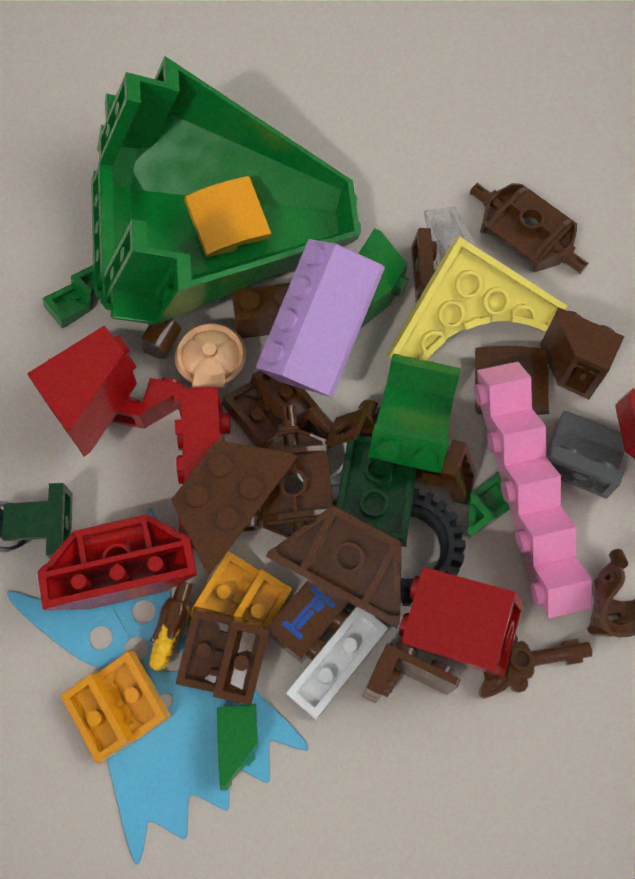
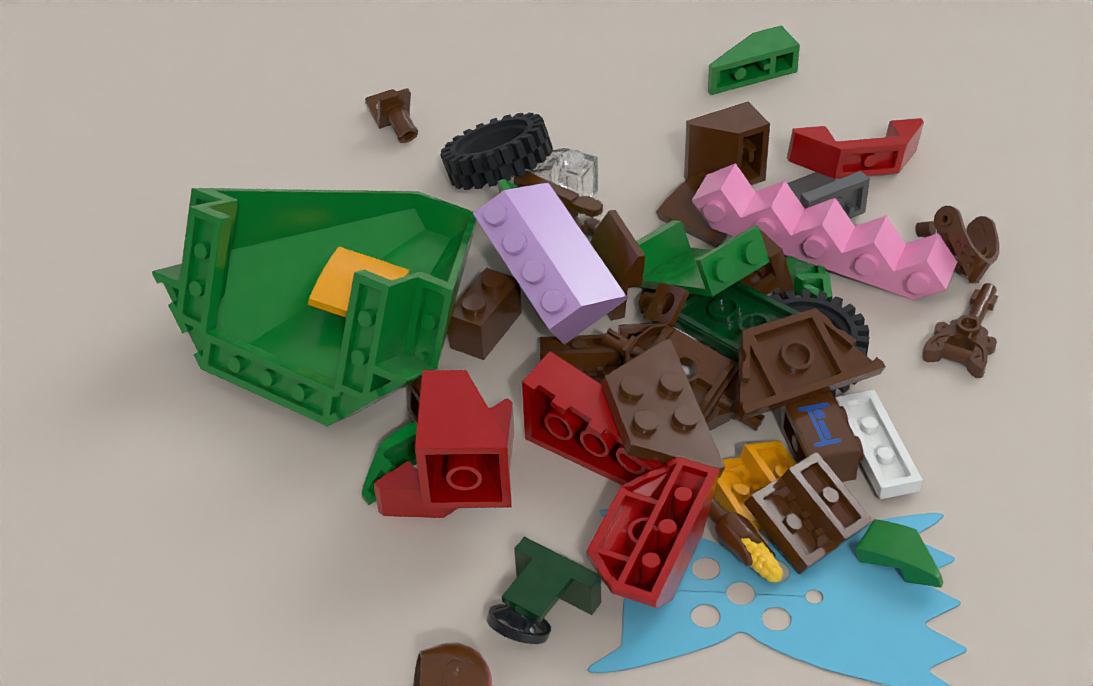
camera: 50 degrees left, 25 degrees down
(73, 300) = (311, 452): green slope -> none
(115, 706) = (792, 629): light orange slope -> none
(210, 355) = (495, 371): light nougat piece -> none
(374, 361) = (620, 255): none -> reddish brown slope
(403, 660) = (926, 386): reddish brown bracket -> none
(433, 217) = (496, 151): none -> black tyre
(437, 101) = (394, 111): none -> reddish brown bracket
(462, 621) = (916, 319): red slope -> none
(470, 292) = (616, 169): light yellow plate -> none
(544, 243) = (594, 122): reddish brown plate -> none

